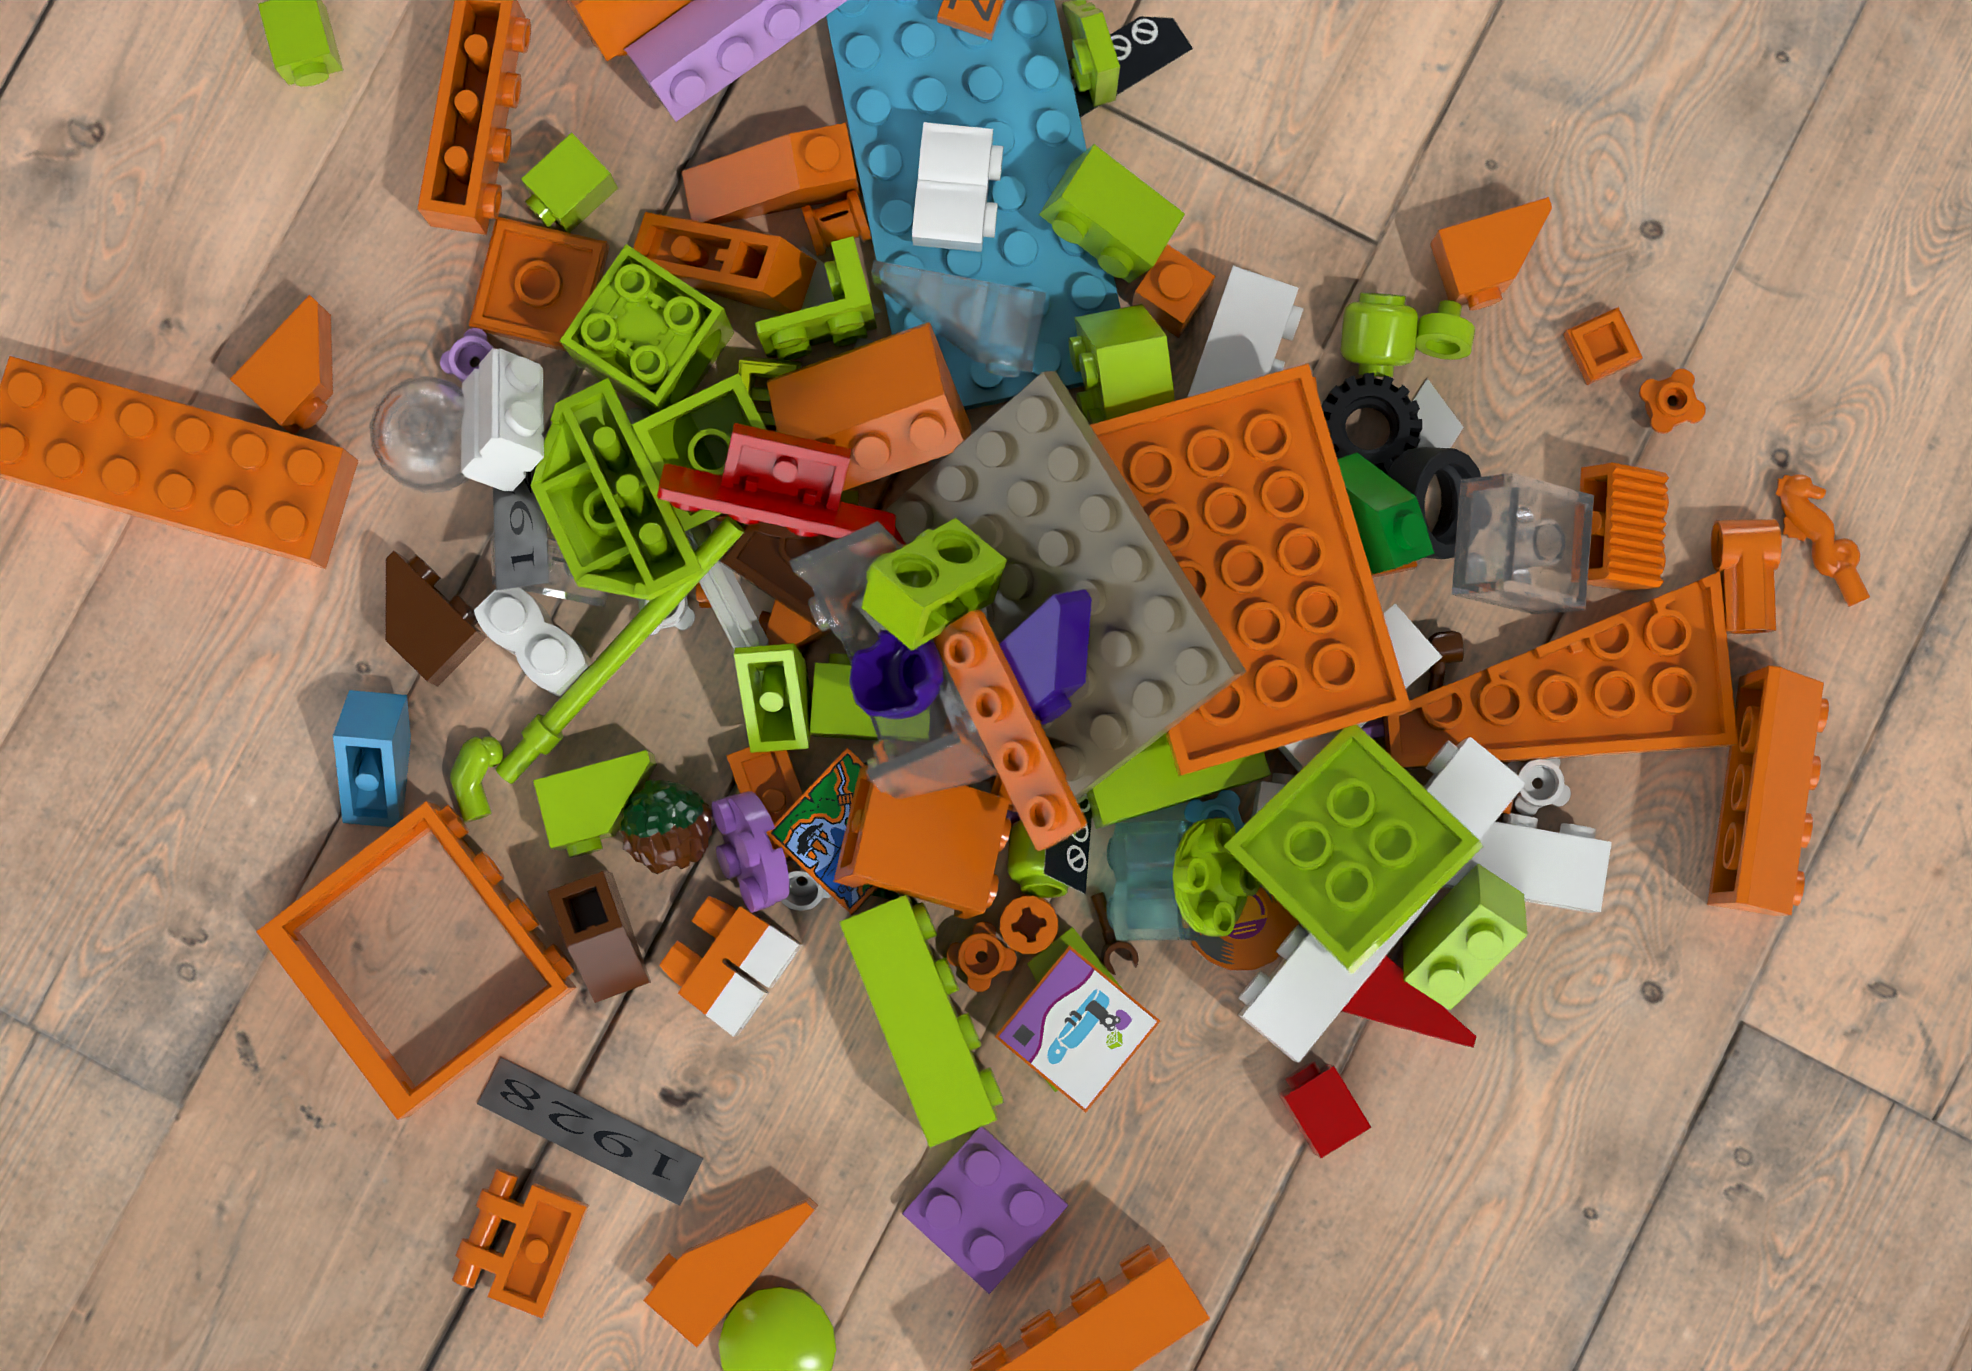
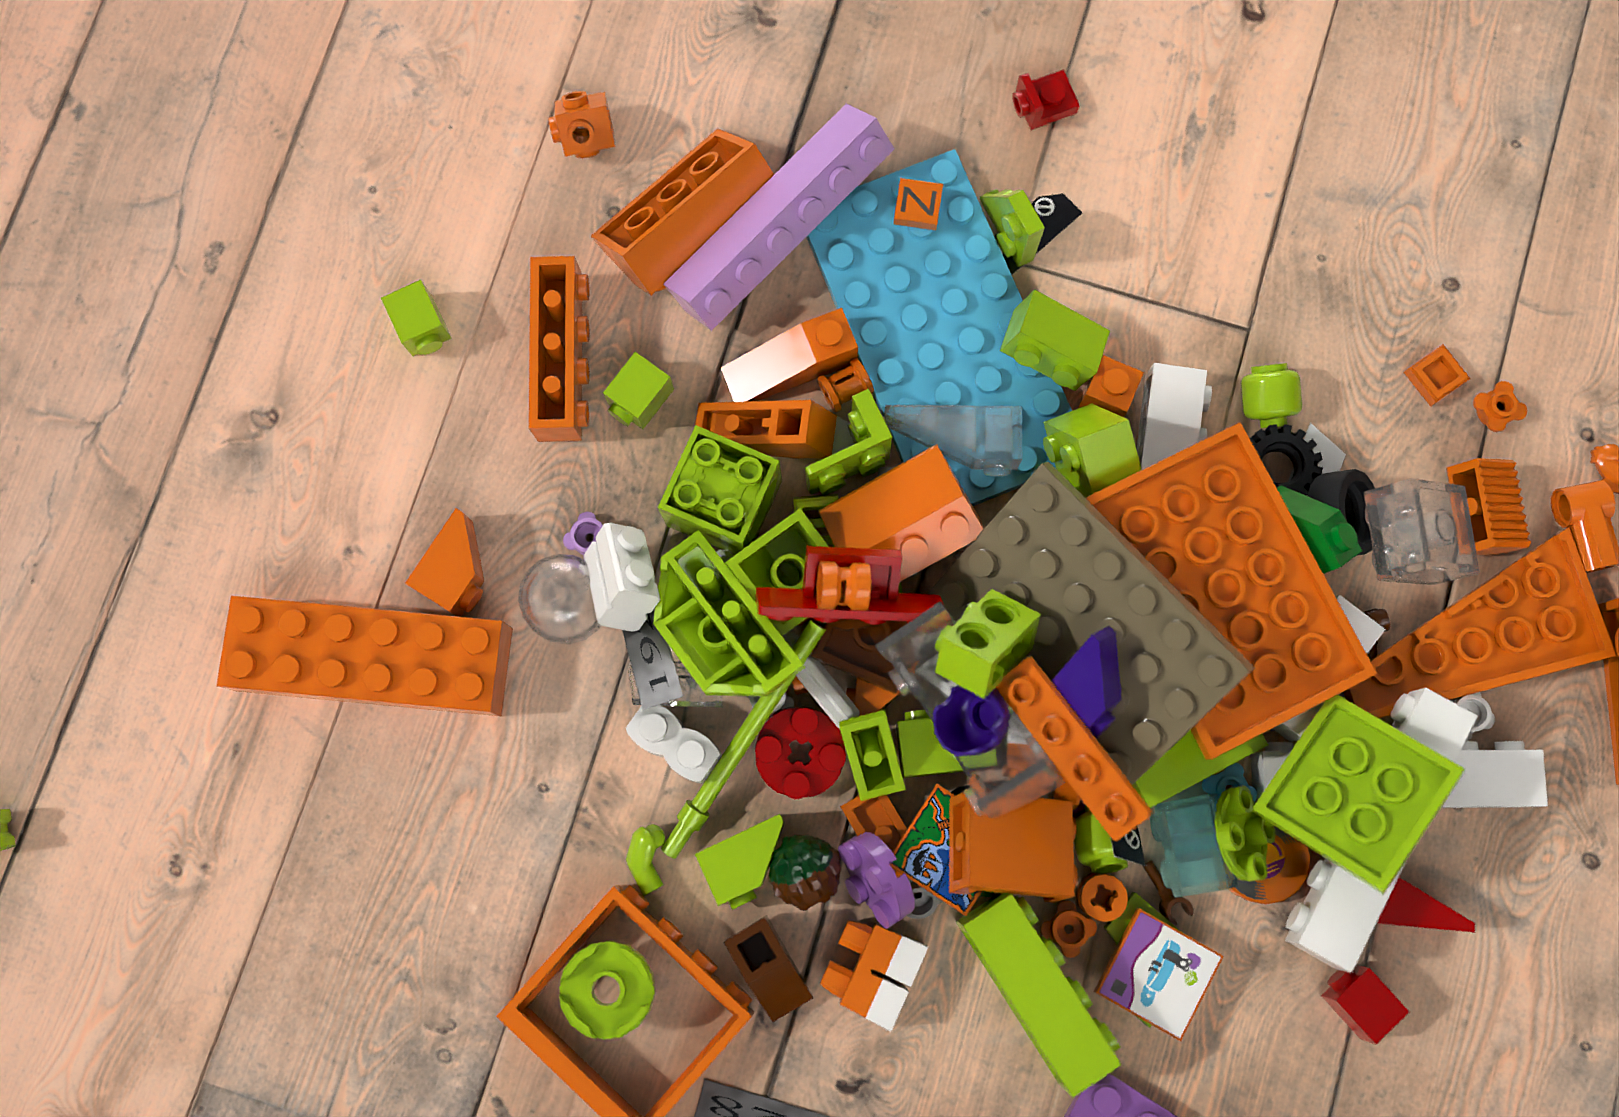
camera: 10 degrees left, 5 degrees down
(372, 757) = (564, 858): dark azure slope -> none
(423, 623) = (585, 745): reddish brown slope -> none
(431, 929) = (579, 998): none -> lime tile
(535, 282) = (626, 470): orange tile -> none
(657, 670) = (796, 778): none -> red plate
(781, 485) = (843, 586): none -> orange wheel
(954, 187) = (933, 341): white brick -> none
(1445, 333) = (1321, 385): lime tile -> none
(1464, 937) = (1453, 848): lime brick -> none
(1486, 253) = (1338, 322): orange slope -> none

